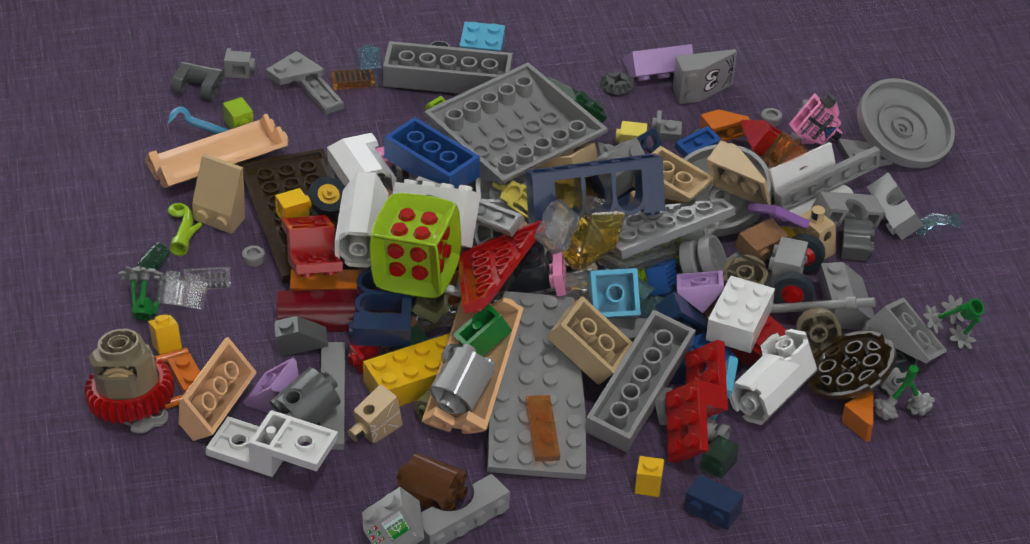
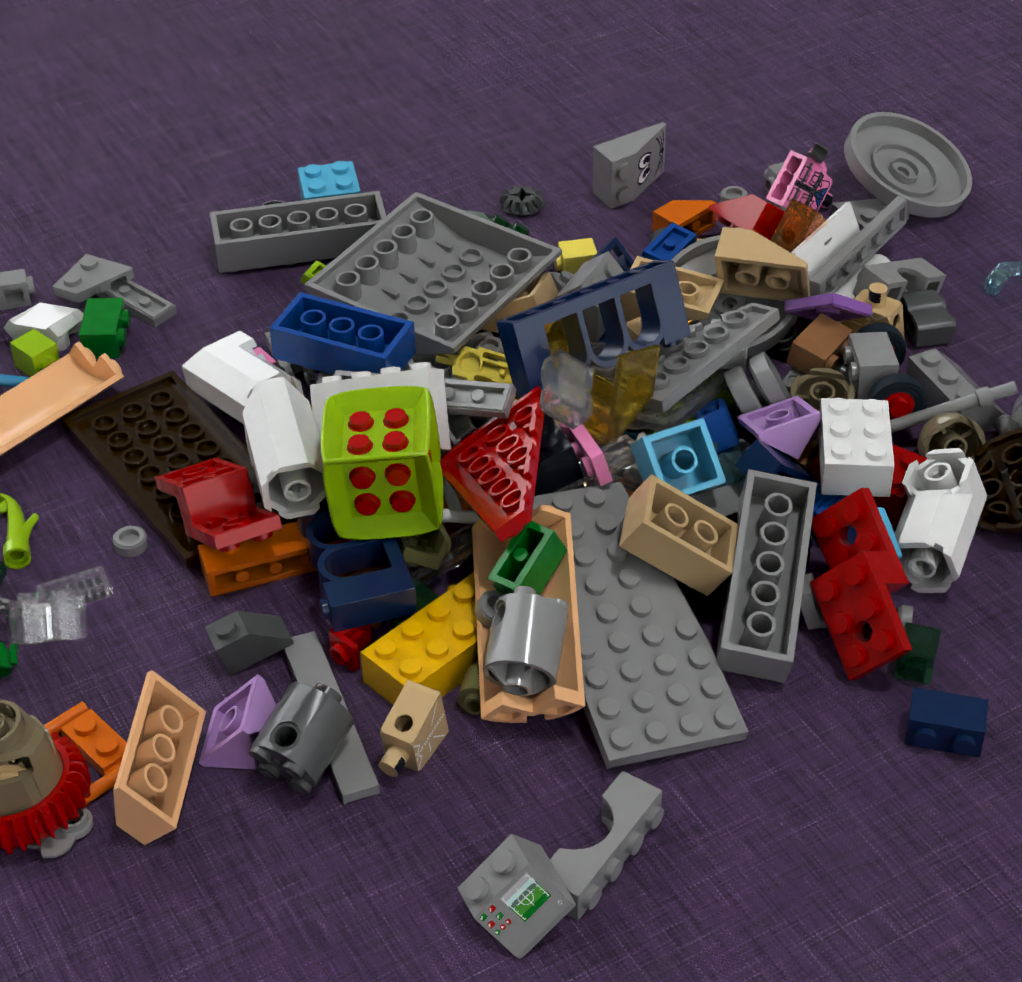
camera: 15 degrees left, 0 degrees up
(165, 334) = (44, 690): yellow brick -> none
(219, 194) = (53, 465): tan slope -> none
(255, 93) = (50, 320): none -> white slope
(272, 443) = (280, 811): white bracket -> none
(290, 107) = (105, 326): none -> green brick
(292, 204) = (163, 454): yellow brick -> none
(325, 307) = (278, 587): dark red brick -> none
(326, 195) = (209, 431): black wheel -> none
(352, 78) = (174, 273): clear orange tile -> none
(369, 57) = (187, 239): clear light blue brick -> none
(433, 482) = (543, 809): reddish brown cylinder -> none
(542, 428) = (664, 681): clear orange tile -> none
(649, 476) = (840, 709): yellow brick -> none
(654, 62) = (560, 164): lavender slope -> none
(667, 128) = (602, 236): light grey bracket -> none
(900, 217) = (967, 279): light grey arch -> none

